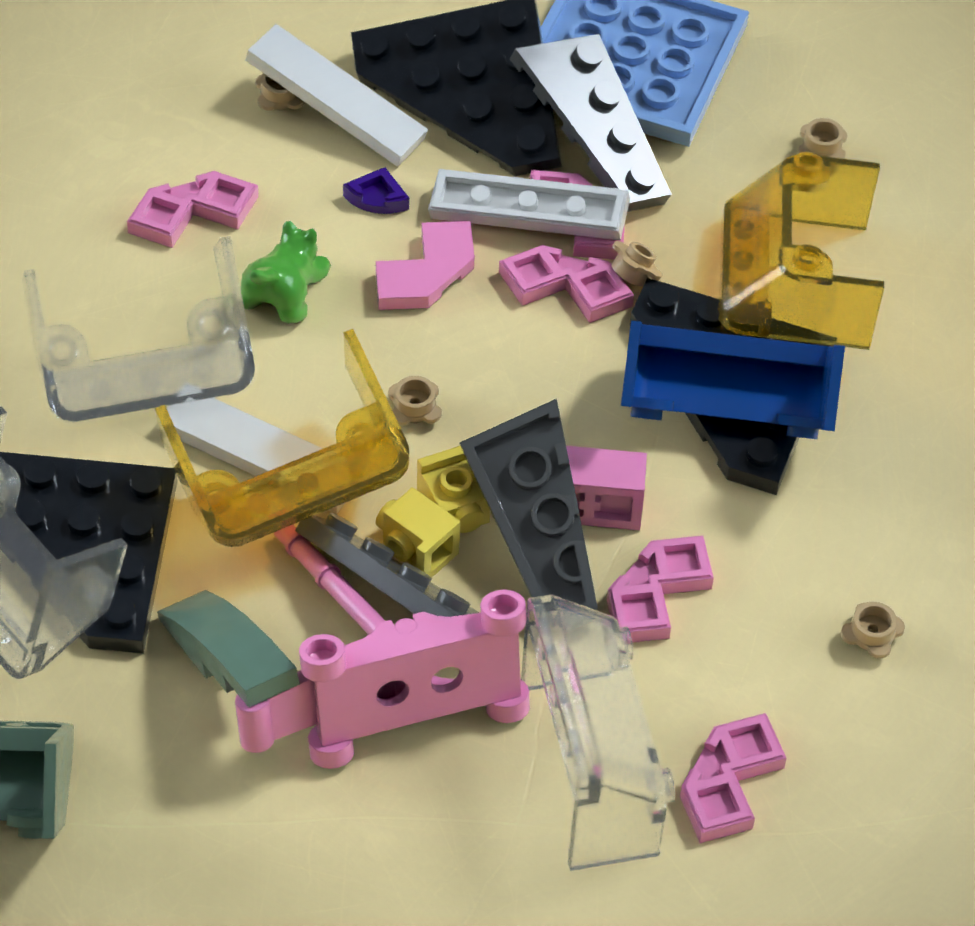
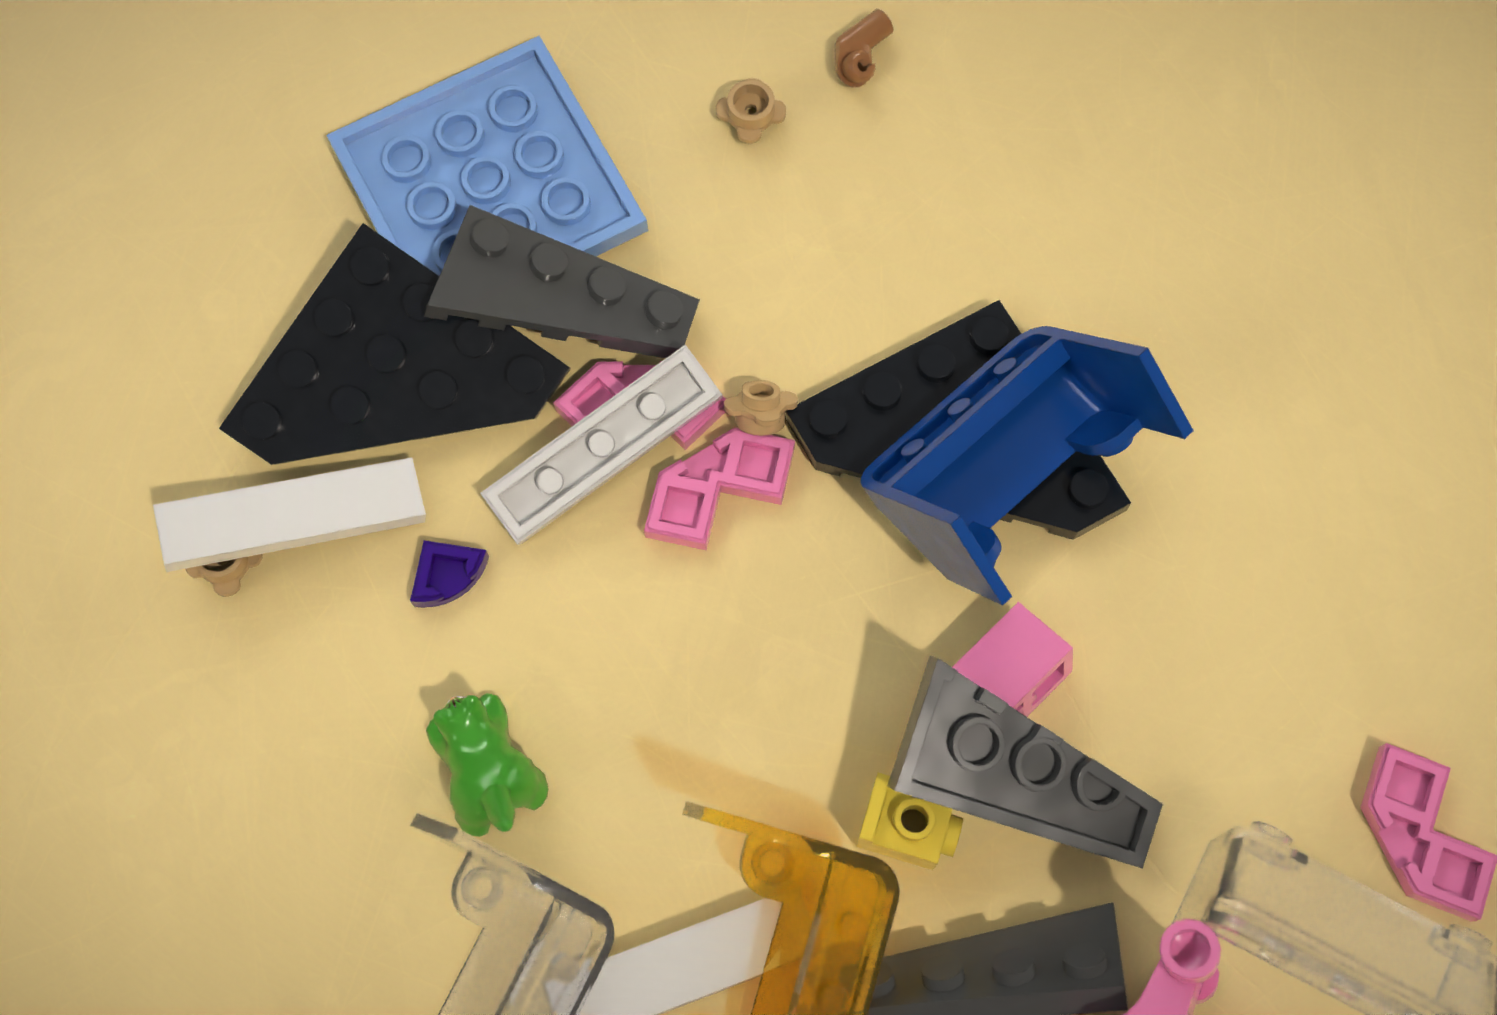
camera: 45 degrees left, 20 degrees up
(213, 196) = (279, 800): bright pink tile -> none
(415, 390) = (750, 743): tan plate -> none
(419, 531) = (937, 899): light yellow brick -> none
(420, 282) = (601, 626): bright pink tile -> none
(661, 569) = (1152, 741): bright pink tile -> none
(790, 288) = (869, 292): clear yellow windscreen -> none
(876, 617) = (1376, 561): tan plate -> none
(923, 165) = (854, 48): none -> medium nougat arm

